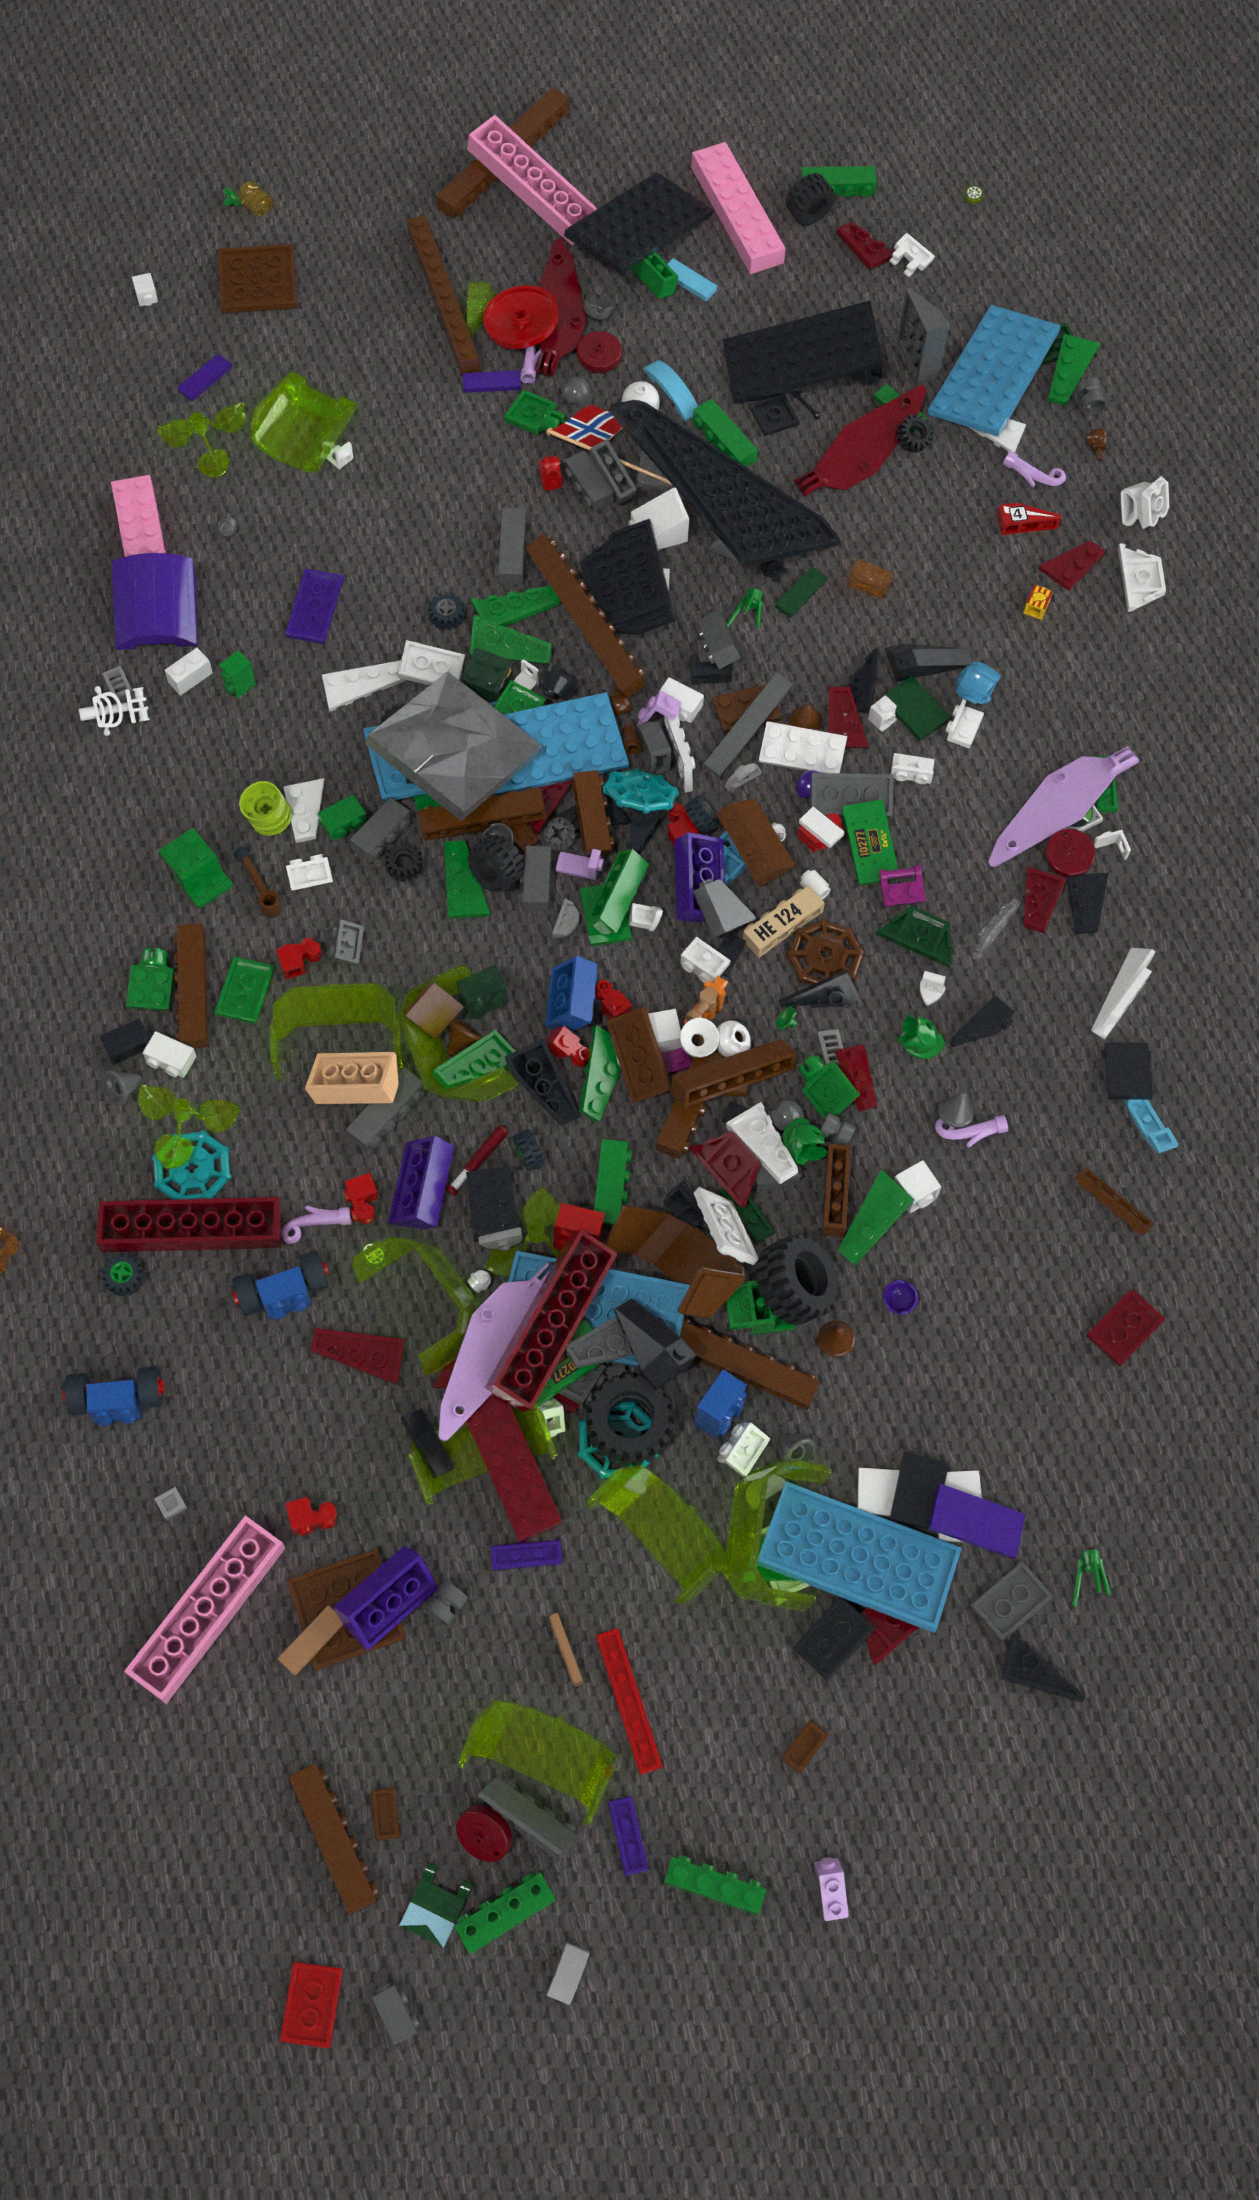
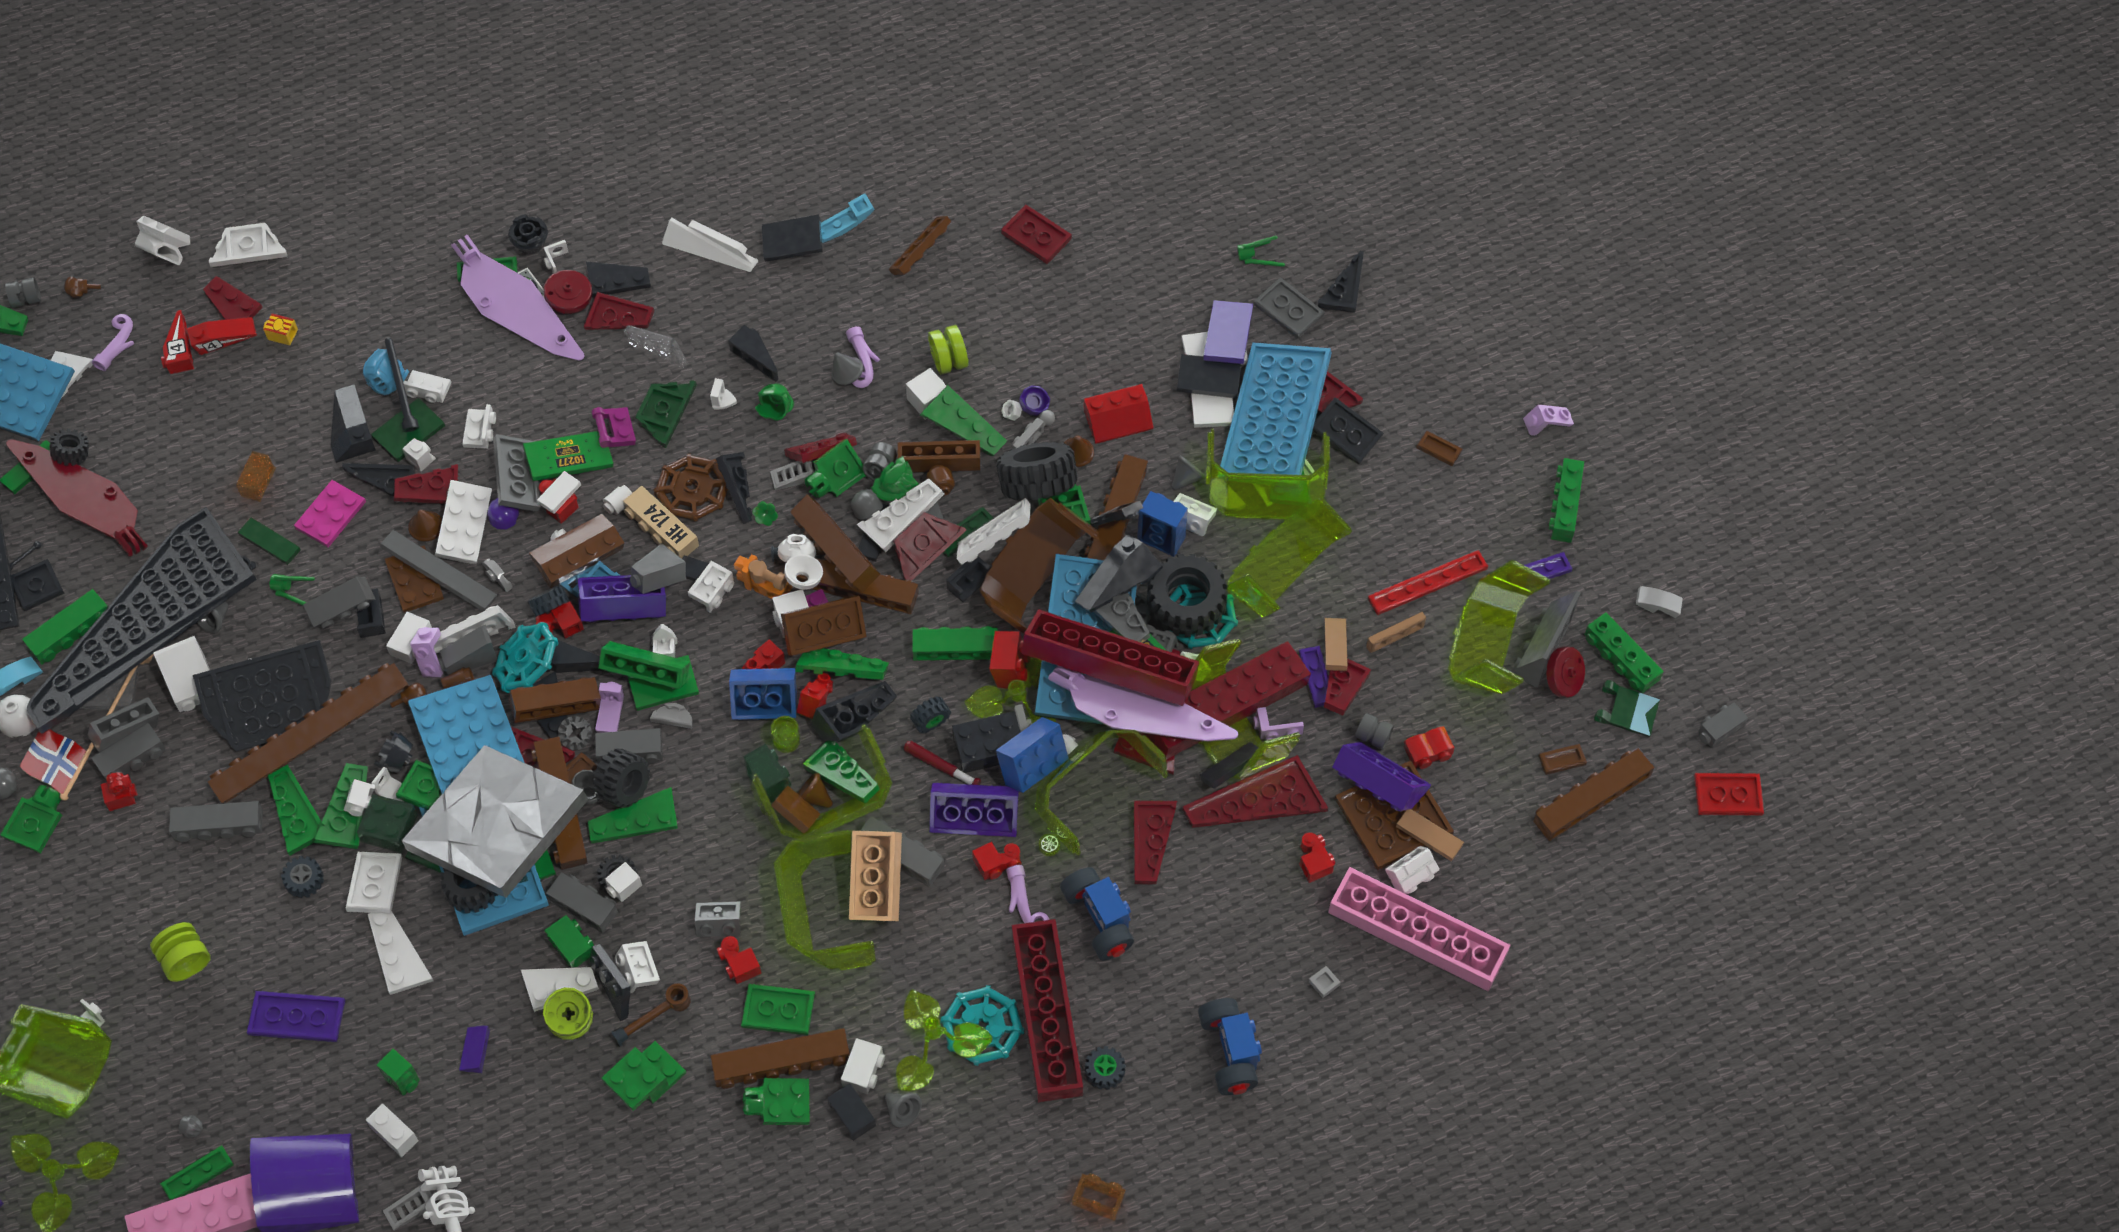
camera: 95 degrees left, 5 degrees down
(185, 533) = (197, 1173): none -> green tile
(255, 740) = (474, 1049): none -> dark purple slope
(275, 1615) = (1412, 870): none -> white brick
(285, 850) = (612, 981): none -> black wing
(384, 515) = (180, 951): none -> lime wheel
(386, 858) = (622, 882): none -> white brick
(390, 1482) = (1272, 793): none -> dark red wing
(419, 1662) = (1429, 747): none -> red brick
(461, 1237) = (1032, 754): none -> blue brick
(475, 1483) = (1270, 732): none -> lavender bracket
(510, 1581) = (1344, 686): none -> dark red wing
(511, 649) = (358, 797): none -> white brick
(527, 1015) = (785, 734): none -> clear neon green wheel
(559, 1579) = (1335, 644): none -> medium nougat tile
(730, 1354) = (1119, 513): none -> black wing
(808, 1190) = (941, 477): none -> reddish brown head
(826, 641) = (330, 513): none -> dark pink plate
(862, 1292) = (1034, 429): none -> light grey plate
(877, 1385) = (1118, 413): none -> red slope
(891, 1273) = (1011, 410): none -> white tile
(918, 704) = (409, 422): none -> black piece
(968, 1211) = (948, 349): none -> lime wheel
(1033, 551) = (220, 334): none -> red slope
(1140, 817) = (528, 234): none -> black cone

